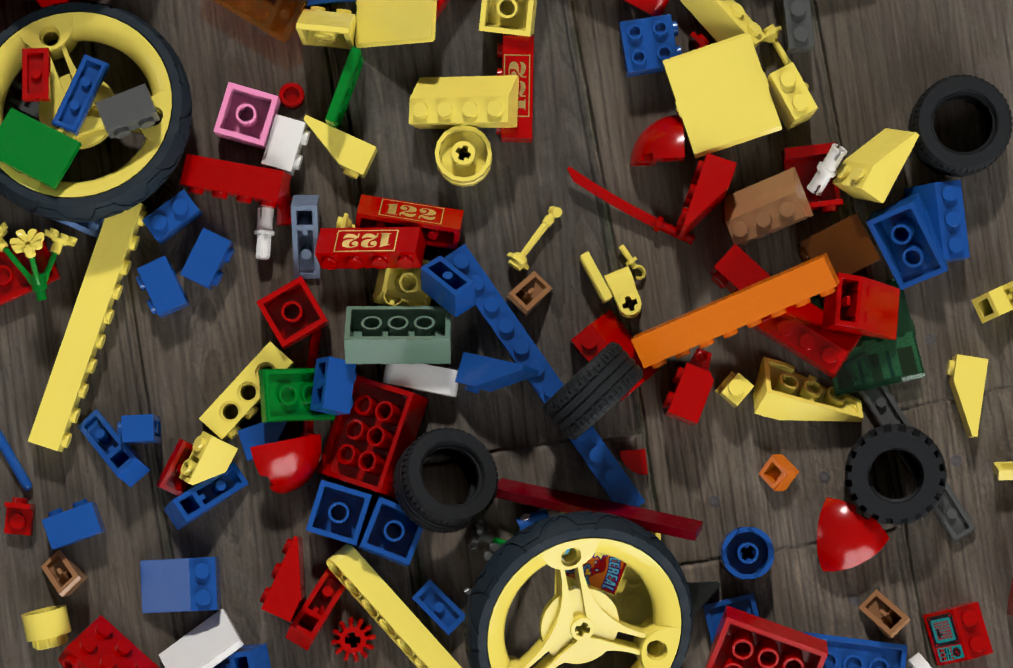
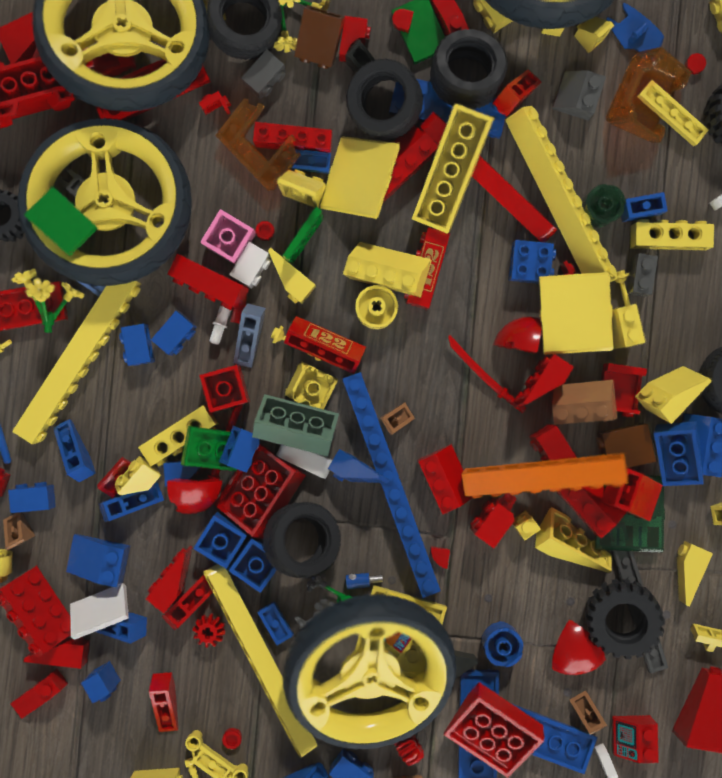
camera: 15 degrees right, 5 degrees up
(36, 74) = (77, 166): red plate -> none
(80, 94) = (107, 190): blue tile -> none
(128, 112) = (137, 212): dark grey brick -> none
(140, 429) = (94, 444): blue brick -> none
(172, 217) = (156, 296): blue brick -> none
(370, 248) = (292, 357): red brick -> none
(448, 286) = (340, 400): blue brick -> none
(519, 260) = (396, 392): light yellow piece -> none
(570, 502) = (407, 590): dark red tile -> none
(593, 391) = (425, 510): black tyre -> none
(595, 277) = (447, 419): light yellow tile -> none
(624, 288) = (465, 431): light yellow piece -> none
(631, 261) = (476, 414): light yellow hand -> none
(778, 472) = (539, 591): orange slope -> none
(826, 169) = (635, 386): white pin -> none

